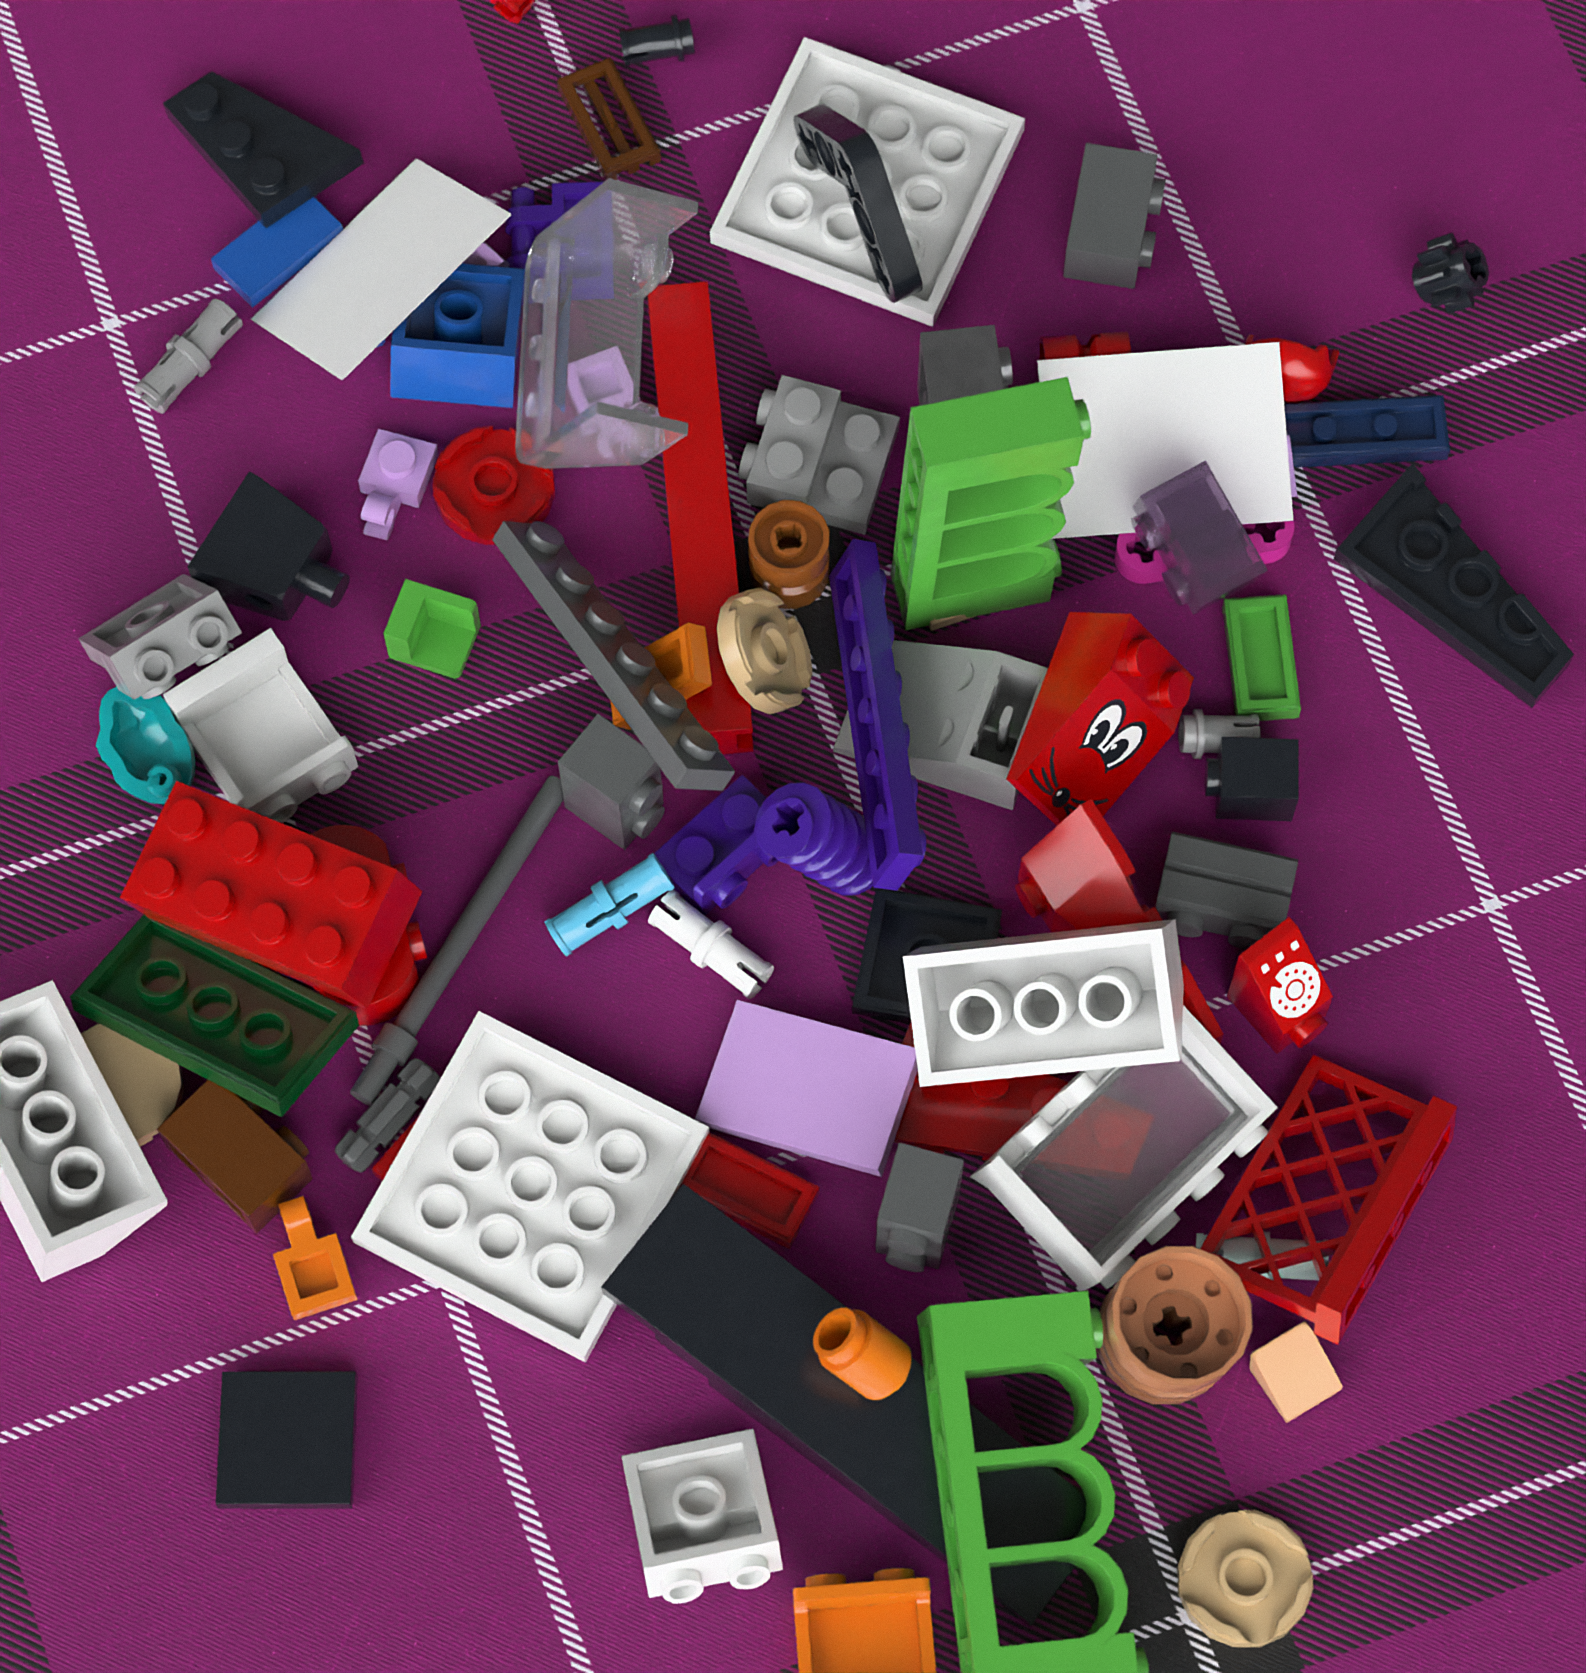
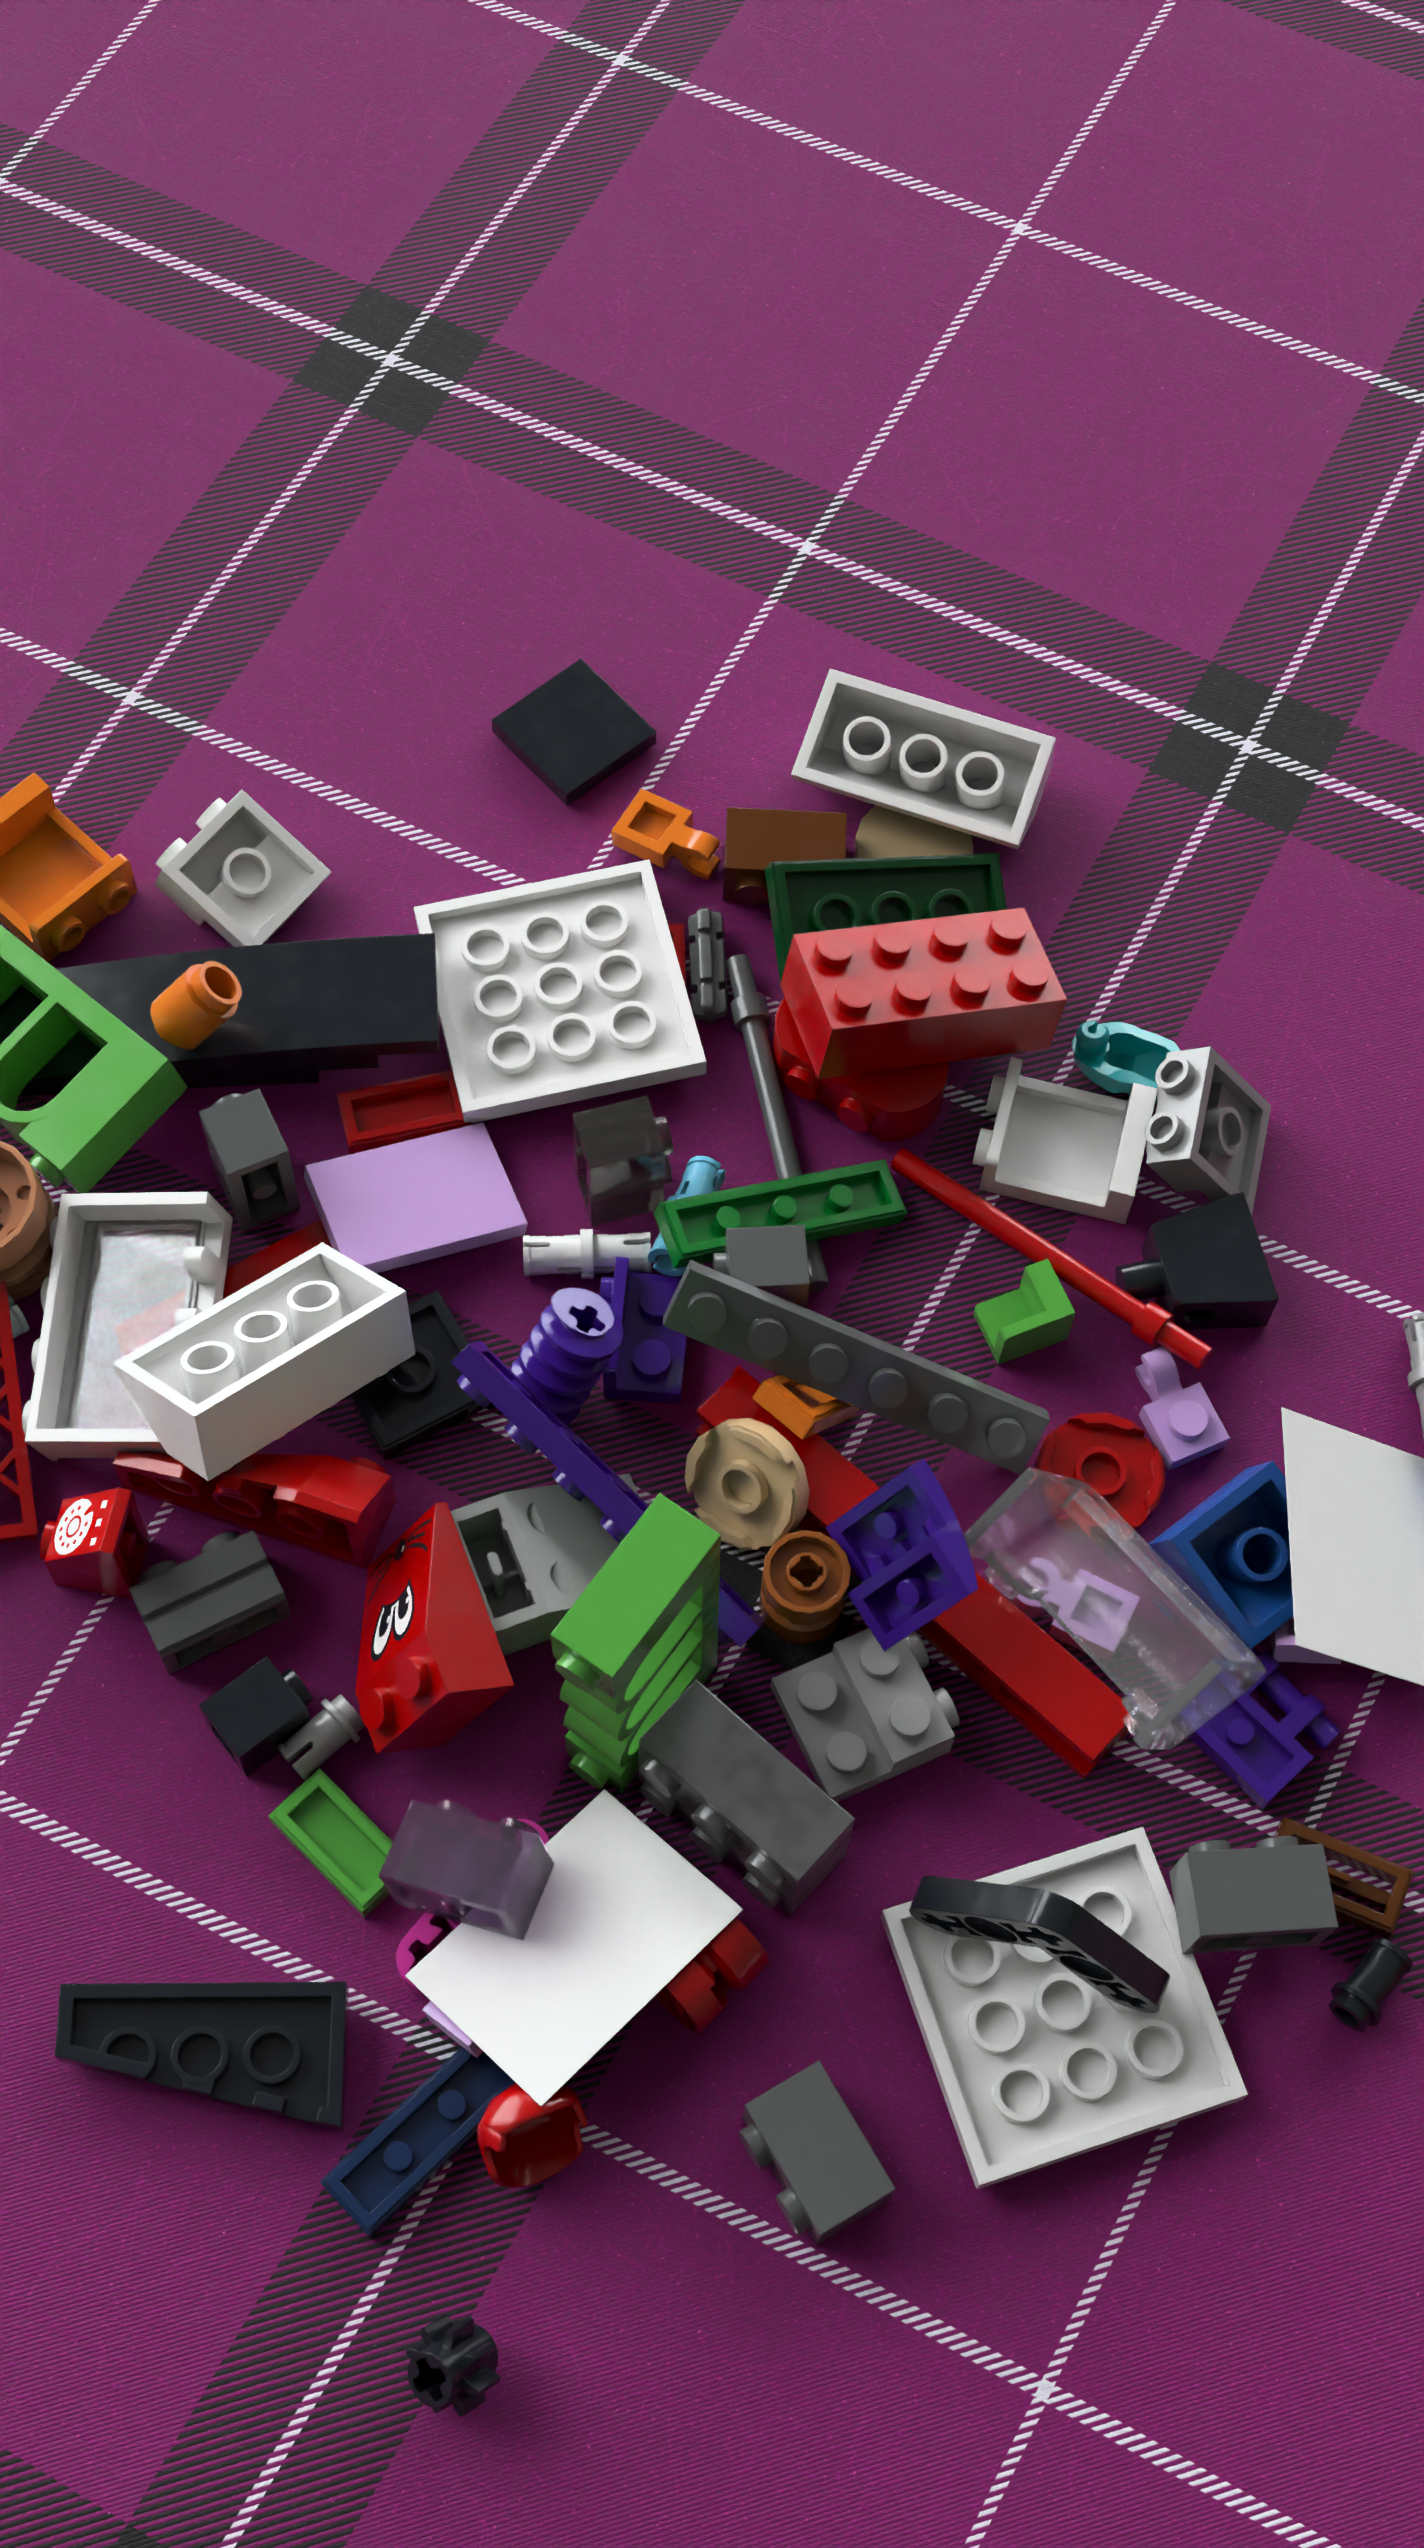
camera: 135 degrees right, 5 degrees down
(356, 537) = (1148, 1322): none -> red bar
(541, 840) = (823, 1201): none -> green tile
(628, 968) = (621, 1159): none -> clear smoke piece
(690, 123) = (1252, 1896): none -> dark grey brick
(718, 472) = (905, 1555): none -> dark purple slope

